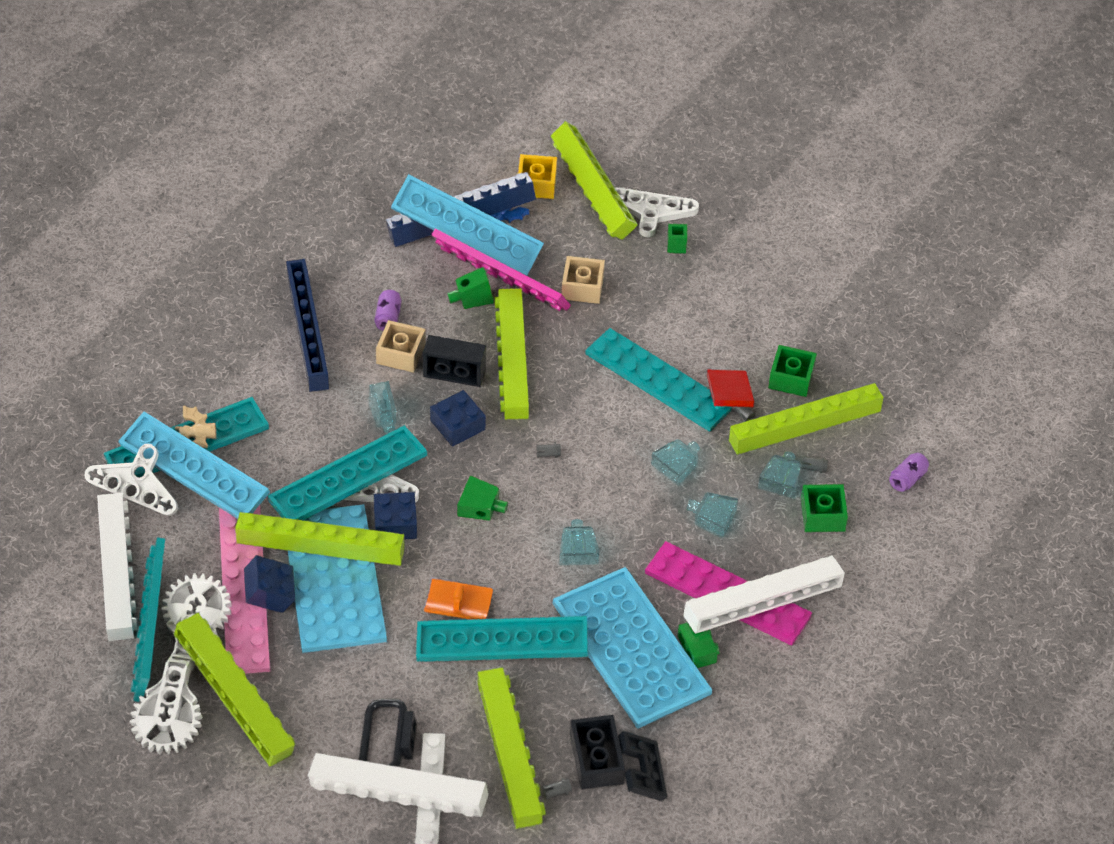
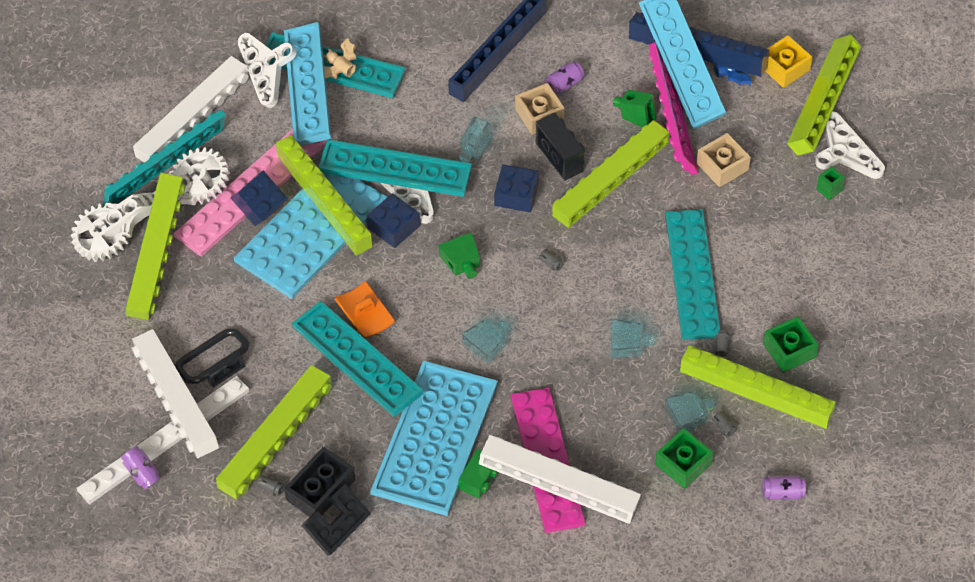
camera: 50 degrees right, 5 degrees up
(714, 513) = (606, 397): clear light blue torso -> none
(730, 388) = (729, 319): red tile -> none

